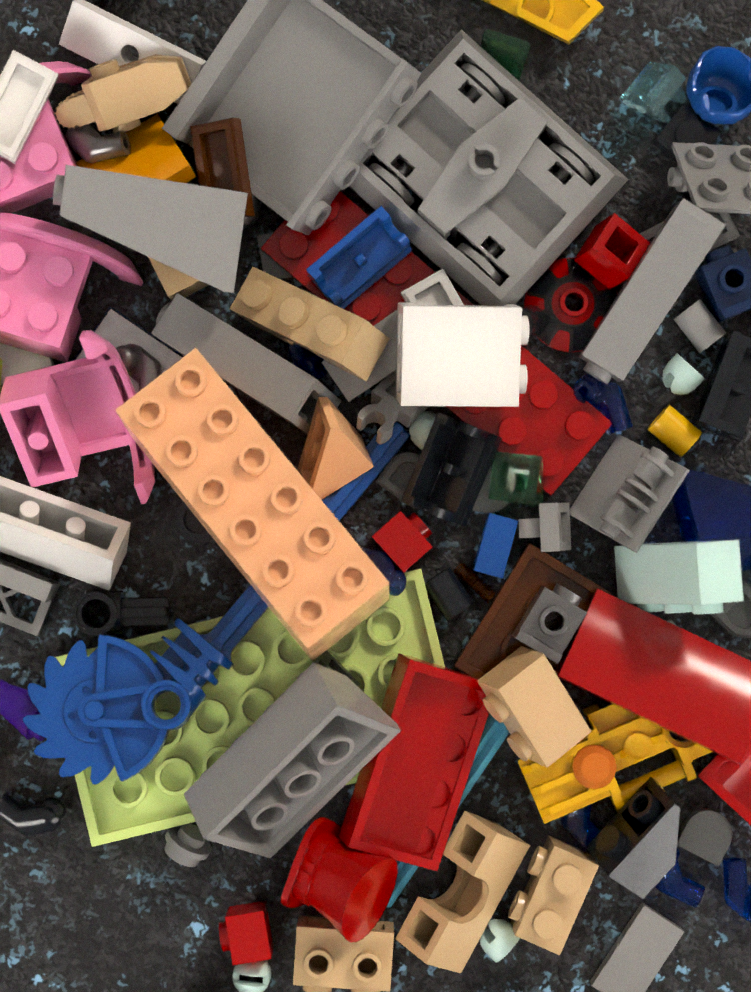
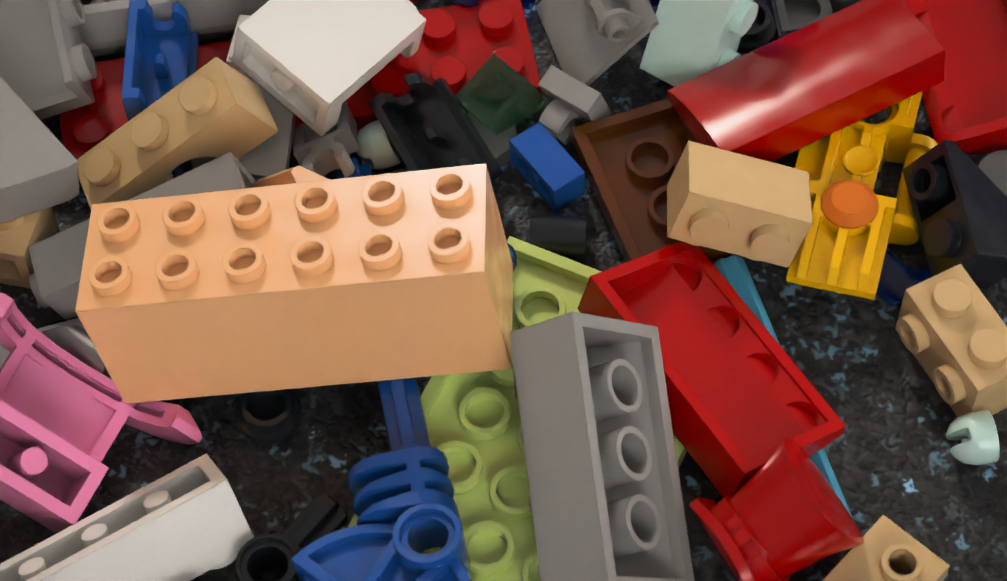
camera: 50 degrees left, 30 degrees down
(449, 927) = (918, 464): tan arch -> none
(475, 581) = (586, 208): reddish brown leg -> none
(532, 628) = (655, 141): flat silver brick -> none

